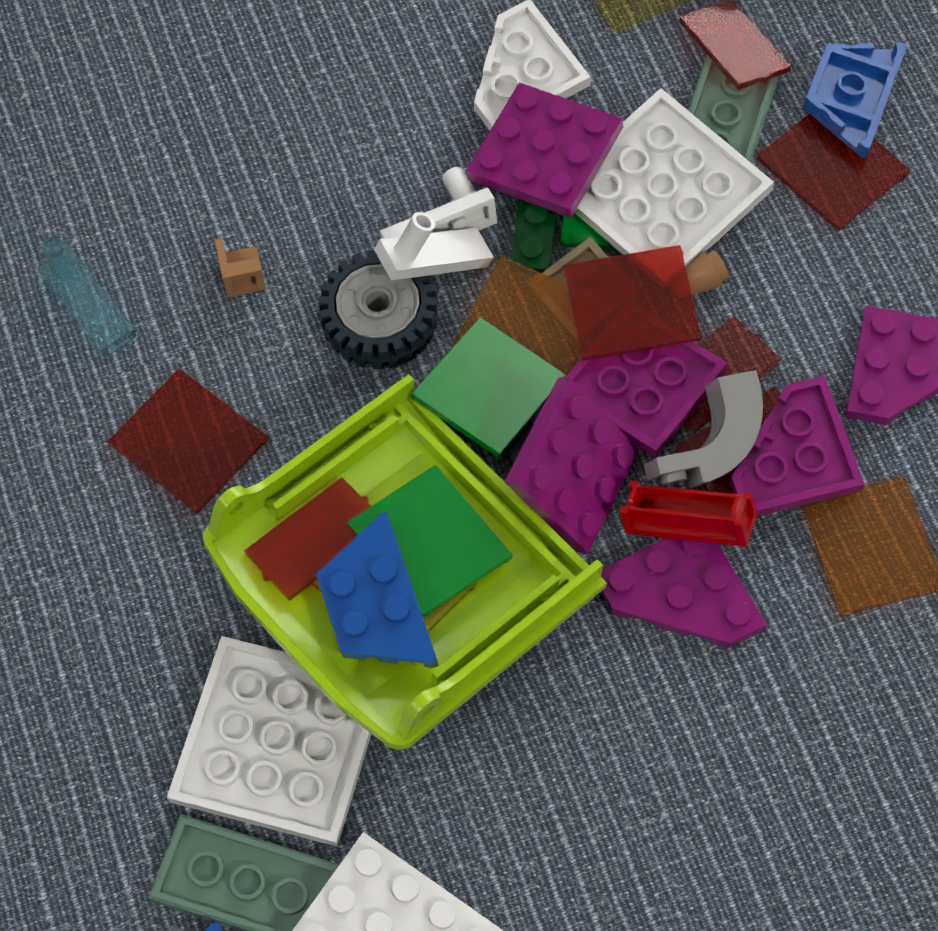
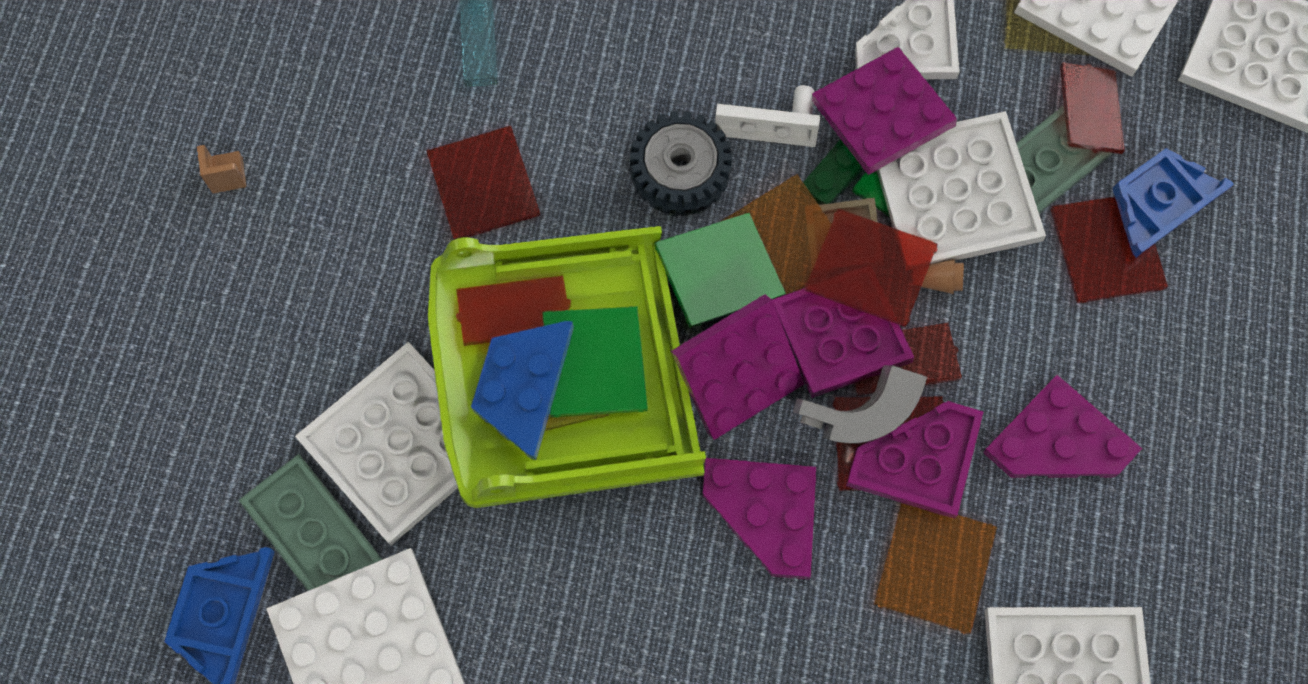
camera: 30 degrees right, 5 degrees up
(240, 270) = (600, 76): medium nougat panel -> none
(428, 253) = (737, 140): white piece -> none
(689, 514) = (804, 458): red container -> none

